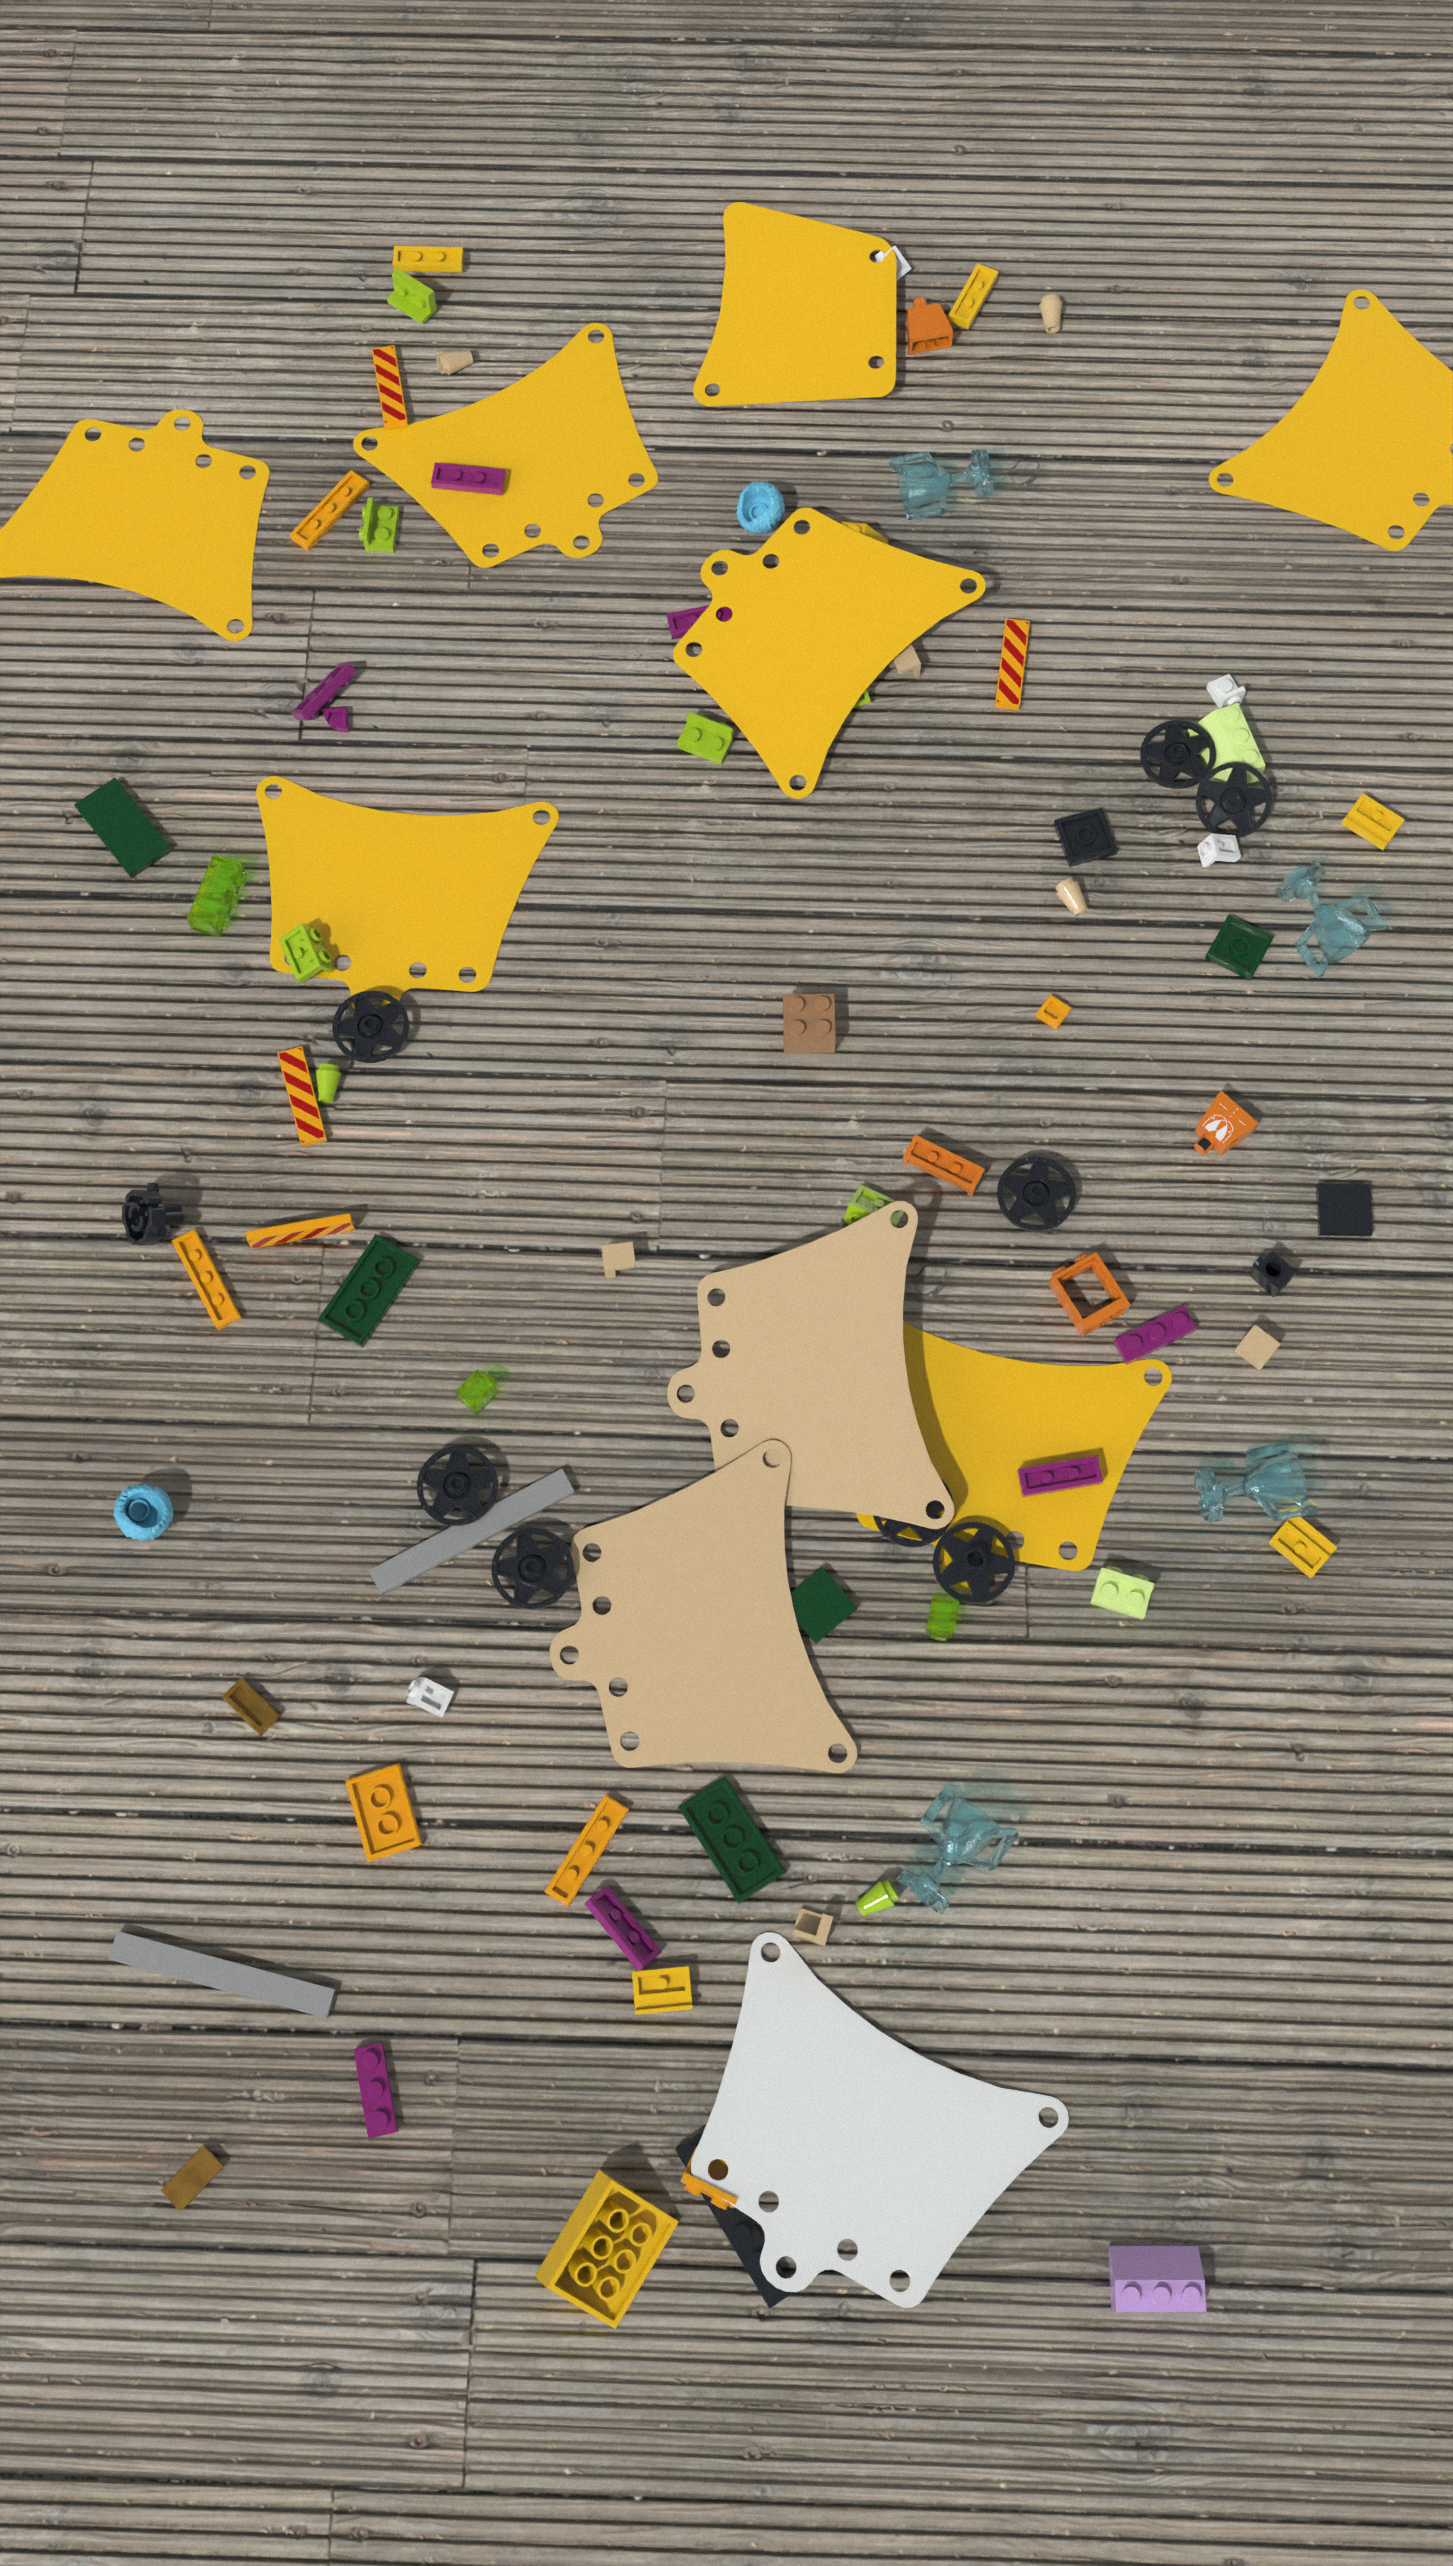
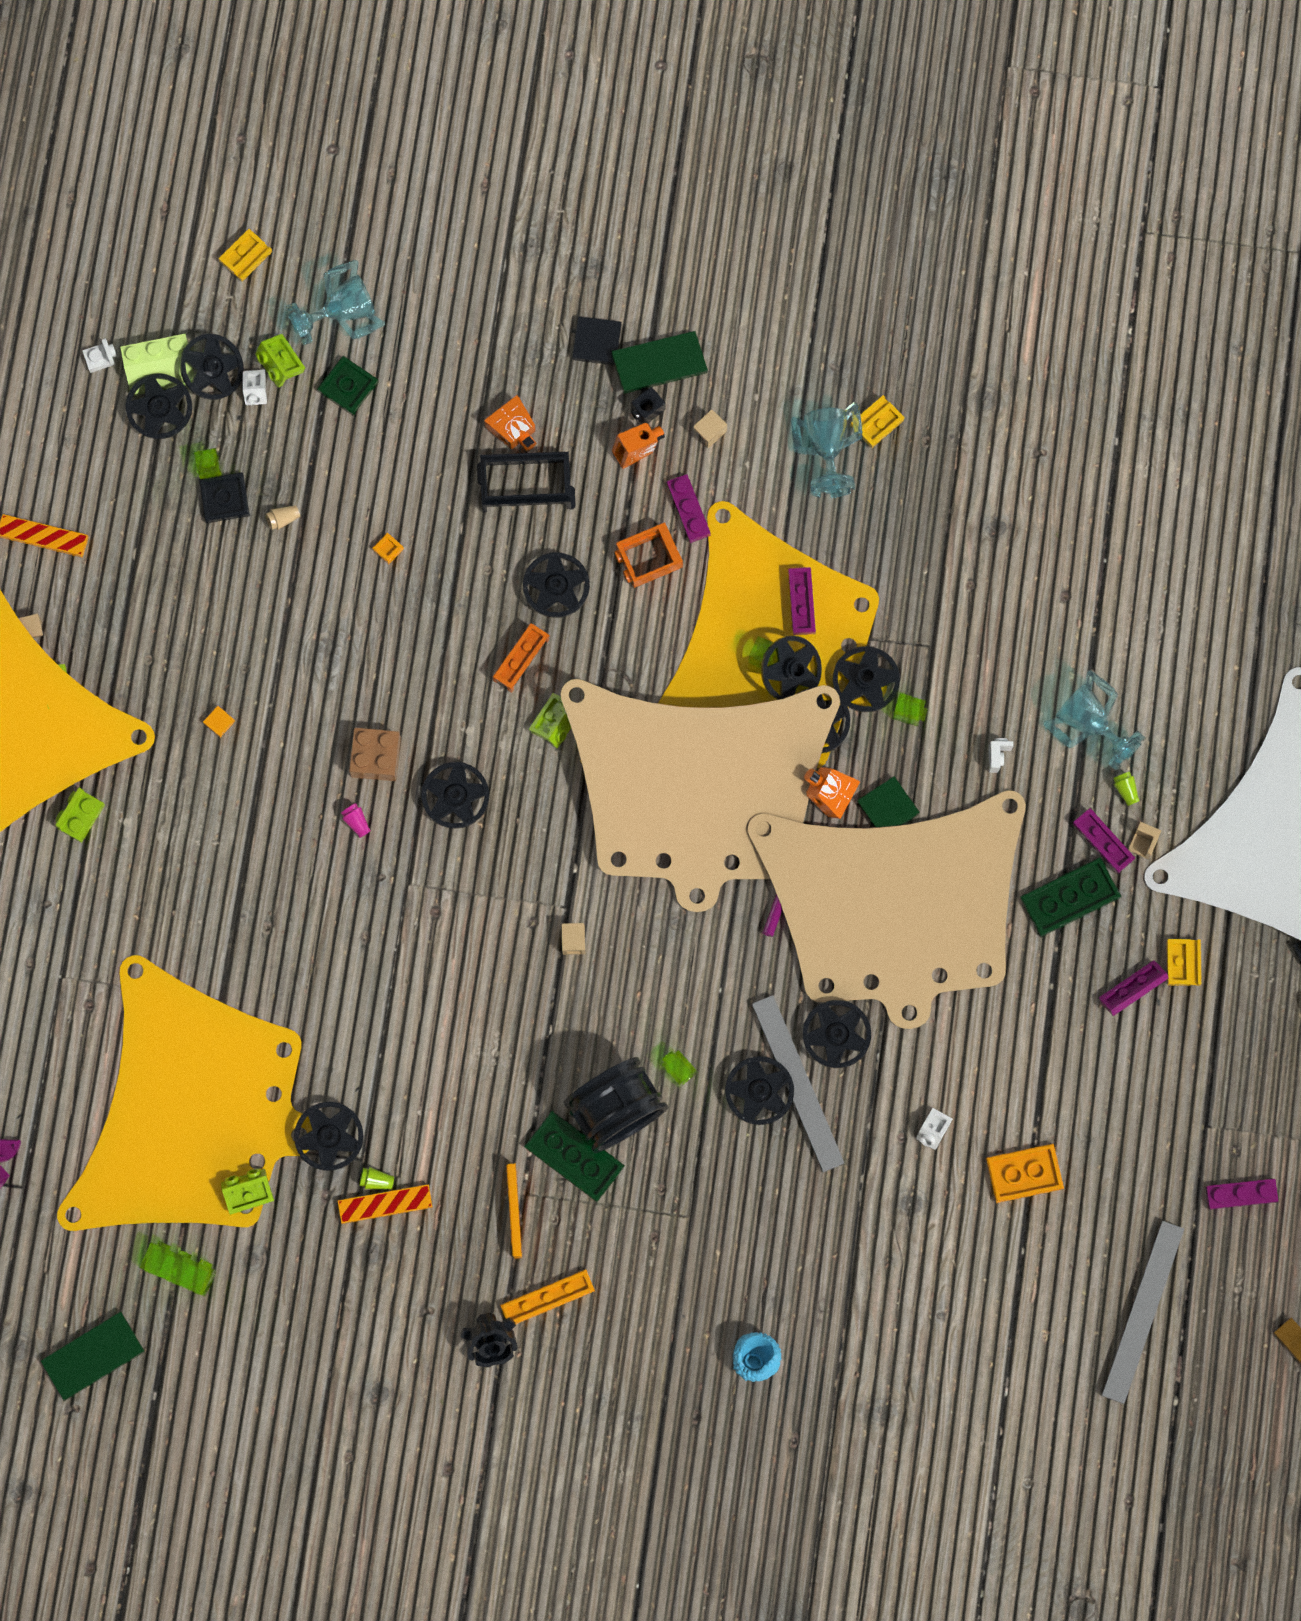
camera: 85 degrees left, 5 degrees up
(251, 1706) = (927, 1278): pearl gold tile -> none
(420, 1317) = (615, 1104): none -> black wheel
(586, 1850) = (1069, 1012): light orange tile -> none
(666, 1483) = (773, 918): none -> magenta piece
(731, 1014) = (355, 819): none -> dark pink cone
(771, 1112) = (455, 795): none -> black wheel
(806, 1874) = (1103, 840): none -> magenta plate
(827, 863) = (219, 721): none -> light orange tile
(828, 1531) = (830, 790): none -> orange torso
(896, 1728) = (996, 758): none -> white bracket
(973, 1468) = (791, 667): none -> black wheel
(987, 1436) = (759, 650): none -> clear neon green brick
(1119, 812) = (208, 463): none -> clear neon green brick
(1122, 1592) = (902, 567): yellowish green bracket -> none
(1153, 1196) = (531, 499): none -> black piece
(1223, 1264) = (636, 444): none -> orange torso
(1256, 870) = (279, 359): none -> lime bracket
(1330, 1281) = (659, 362): none -> dark green tile

